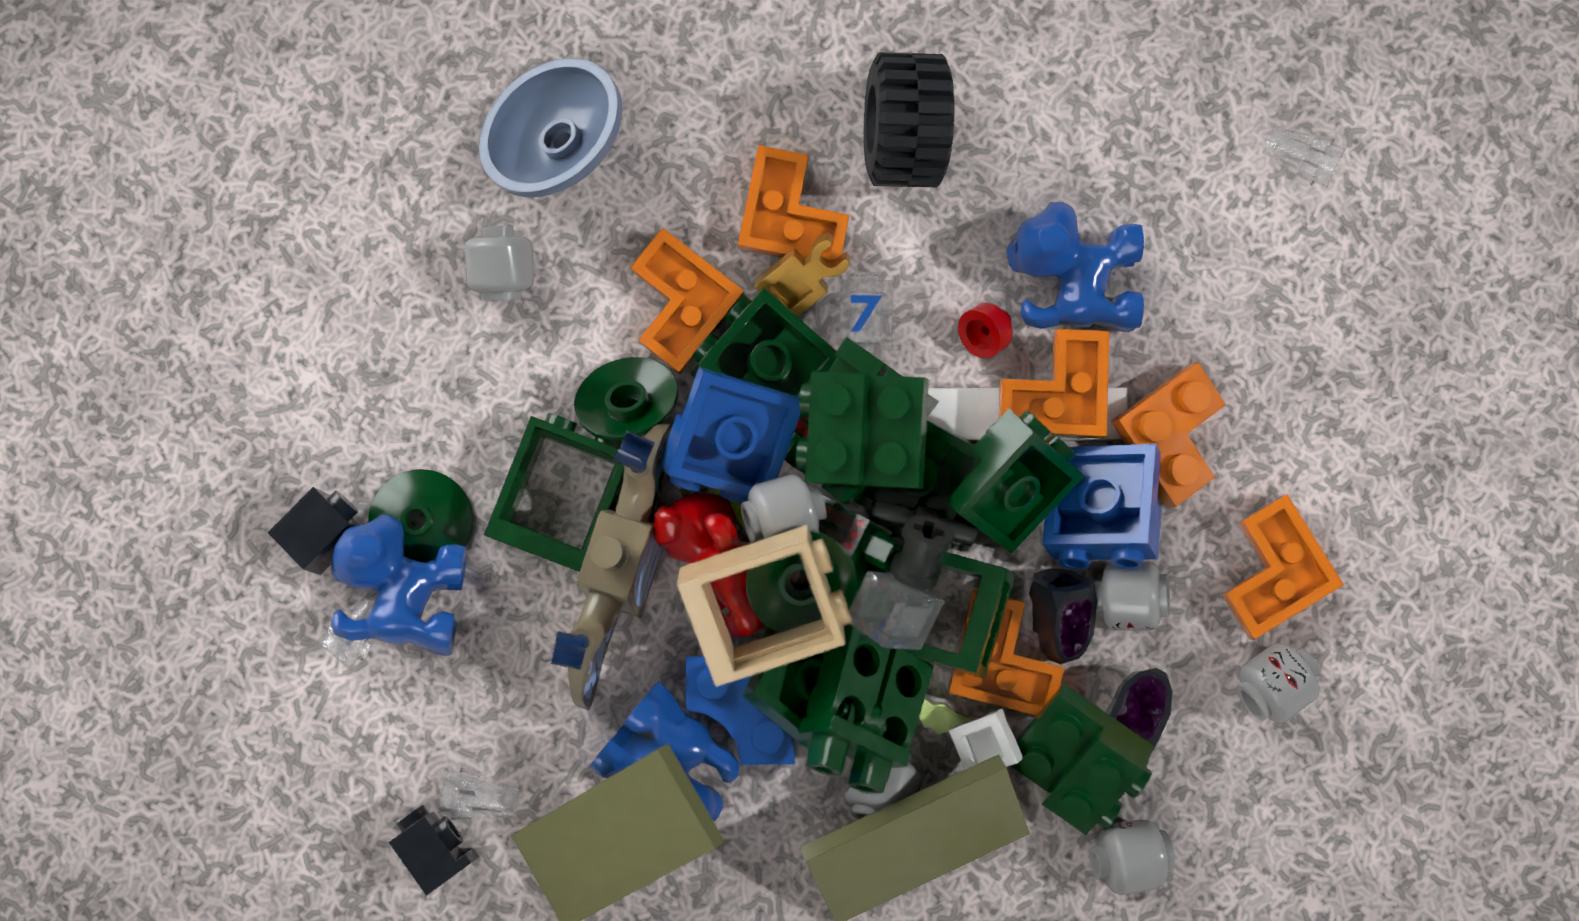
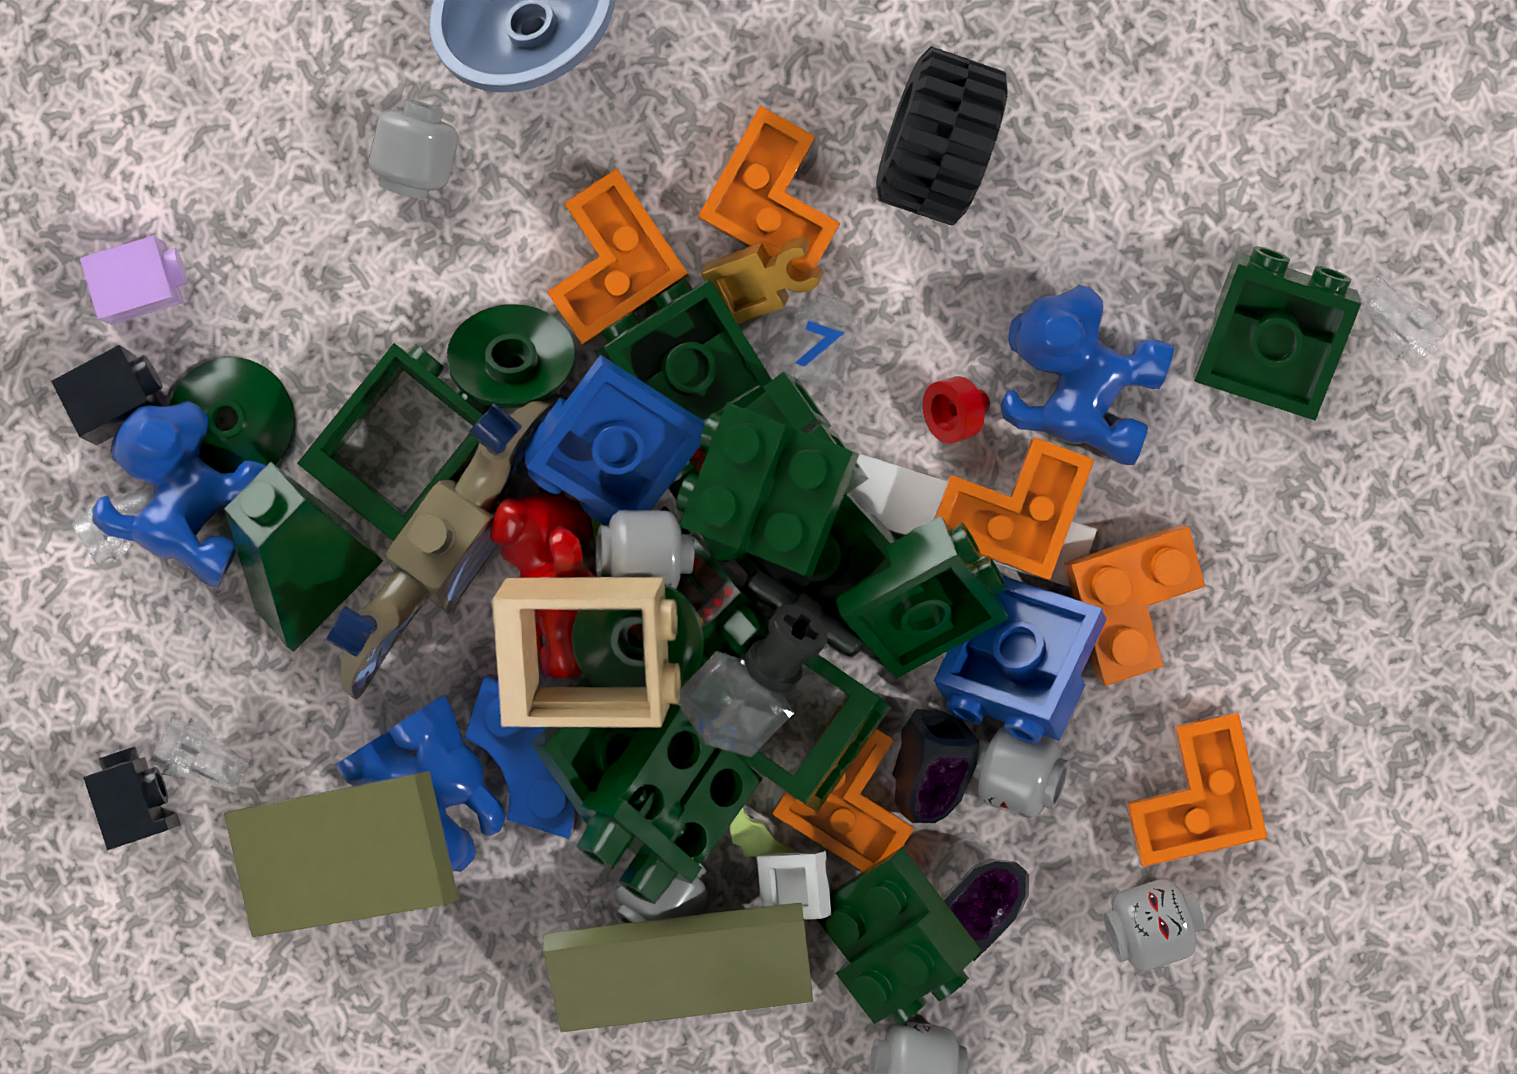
camera: 20 degrees right, 5 degrees up
(310, 433) = (134, 279): none -> lavender brick
(503, 608) = (295, 554): none -> dark green slope
(1215, 191) = (1278, 332): none -> dark green plate

